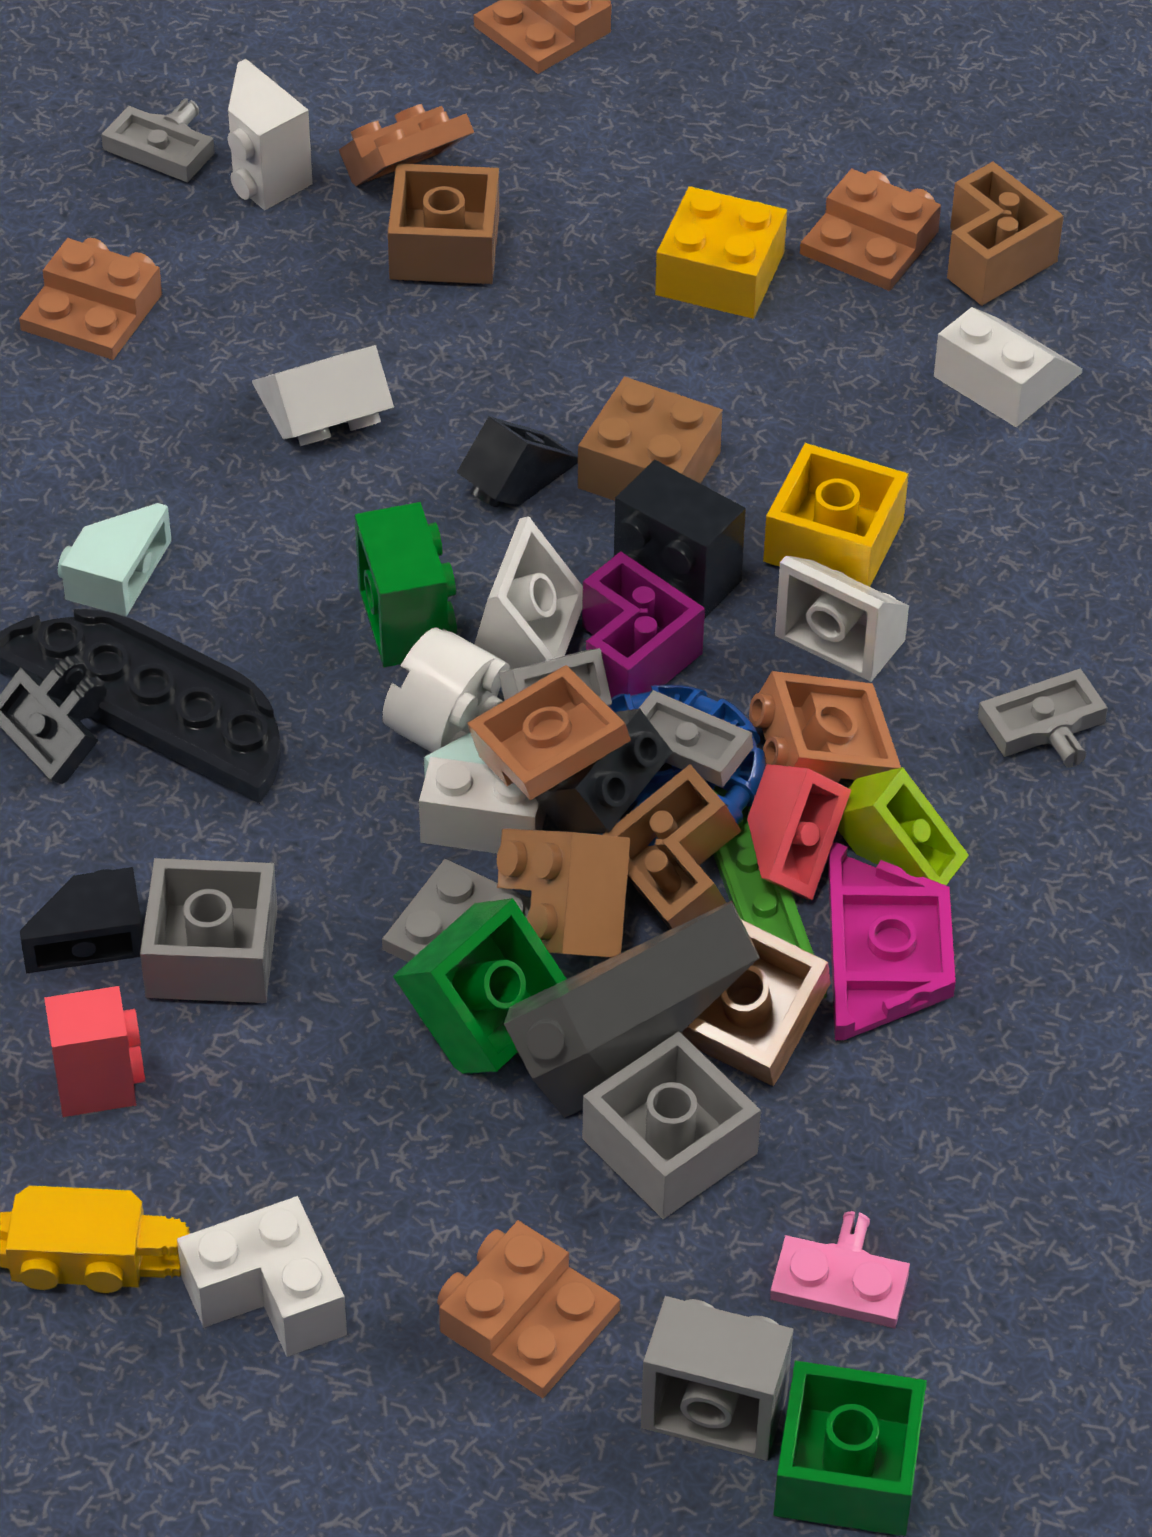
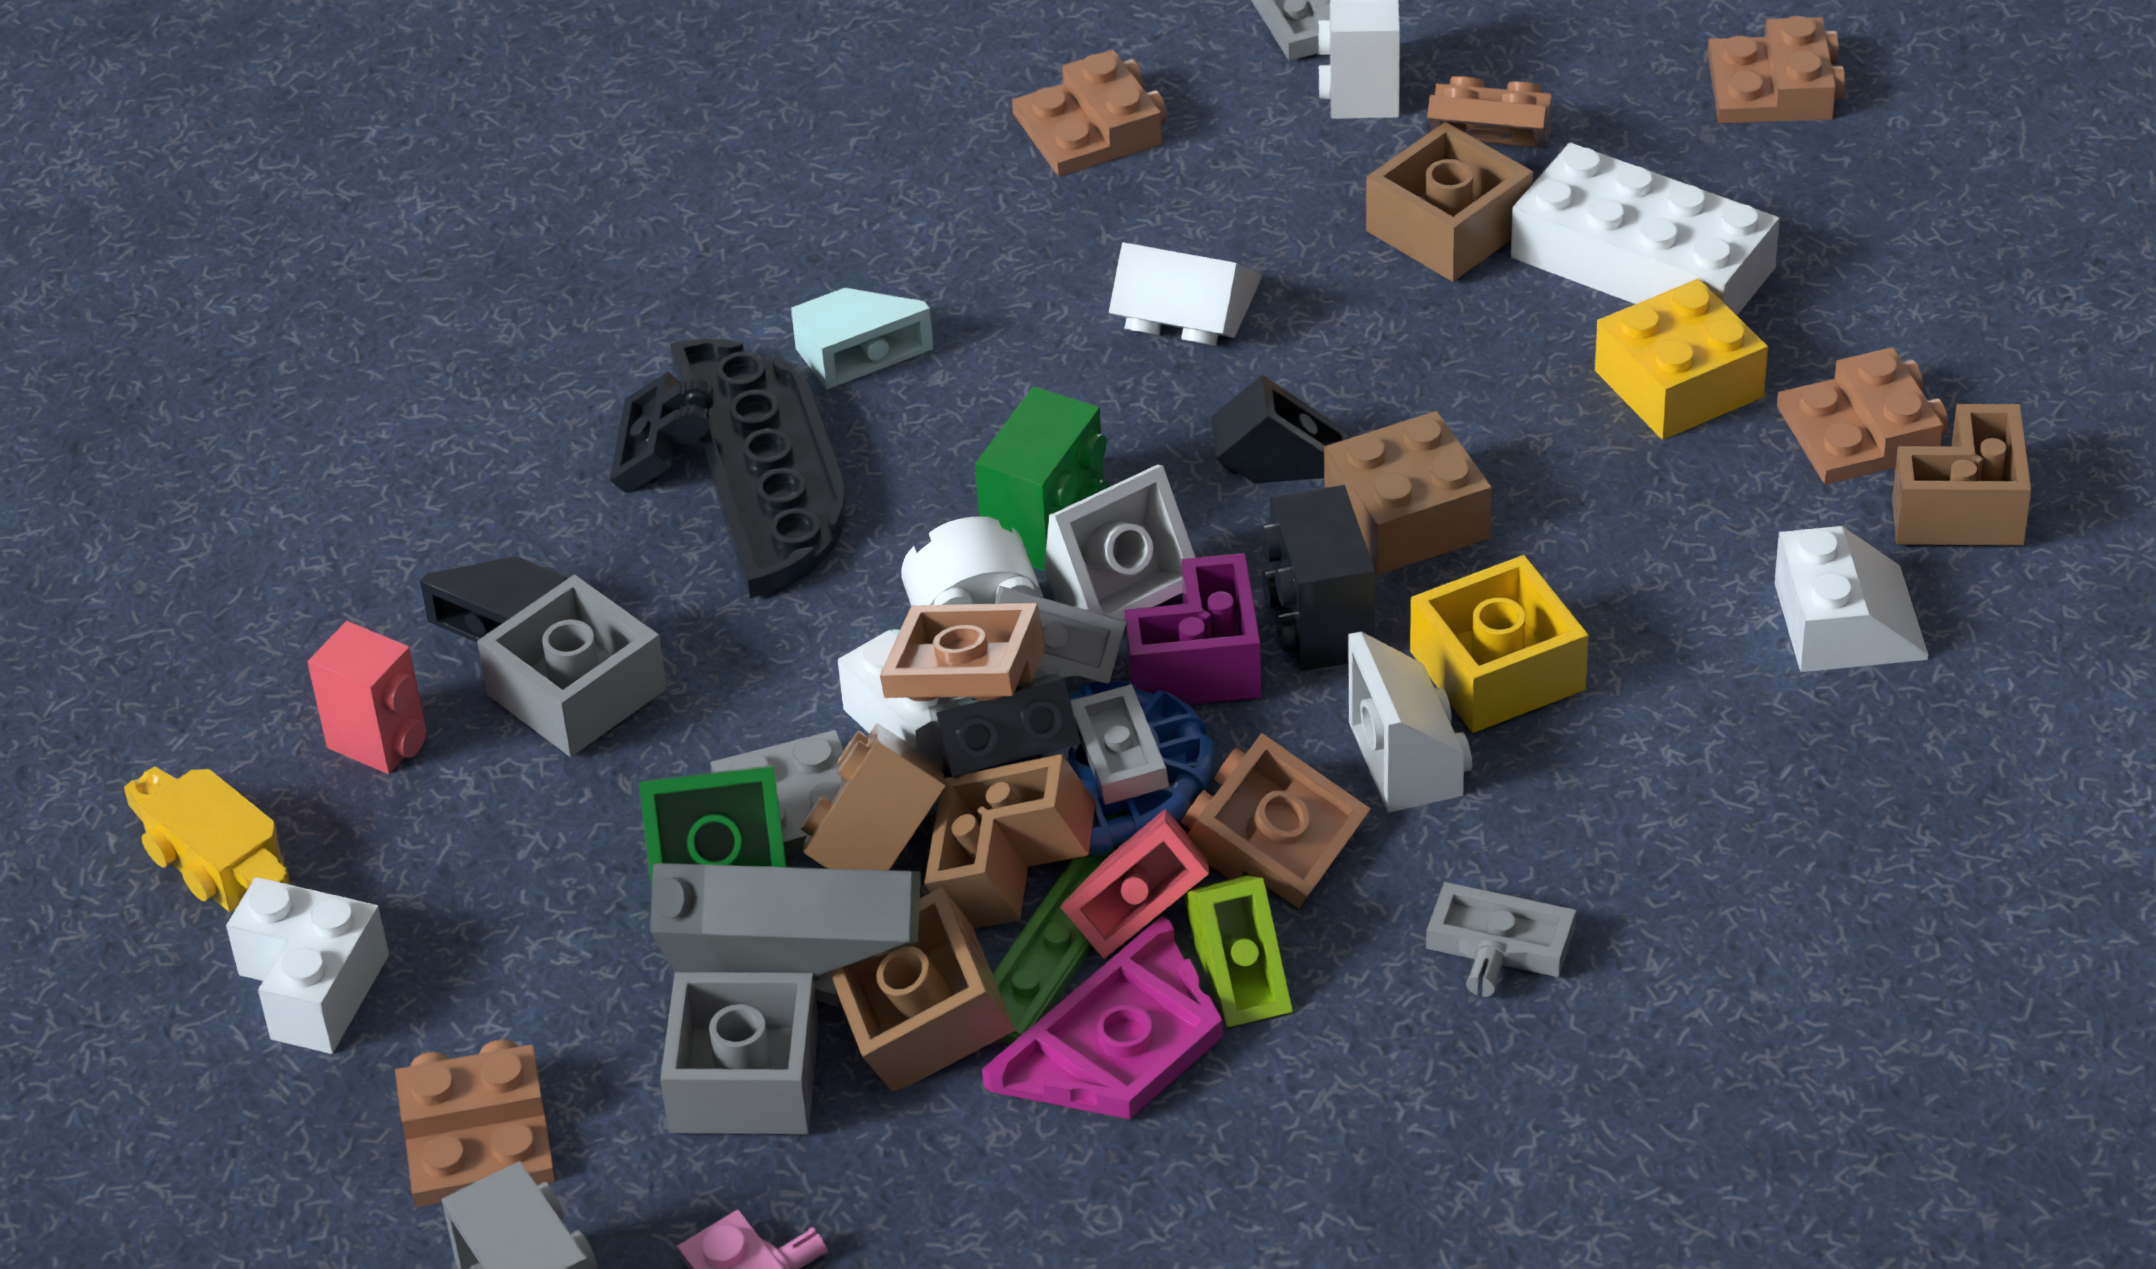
camera: 45 degrees right, 5 degrees down
(596, 178) = (1640, 231): none -> white brick

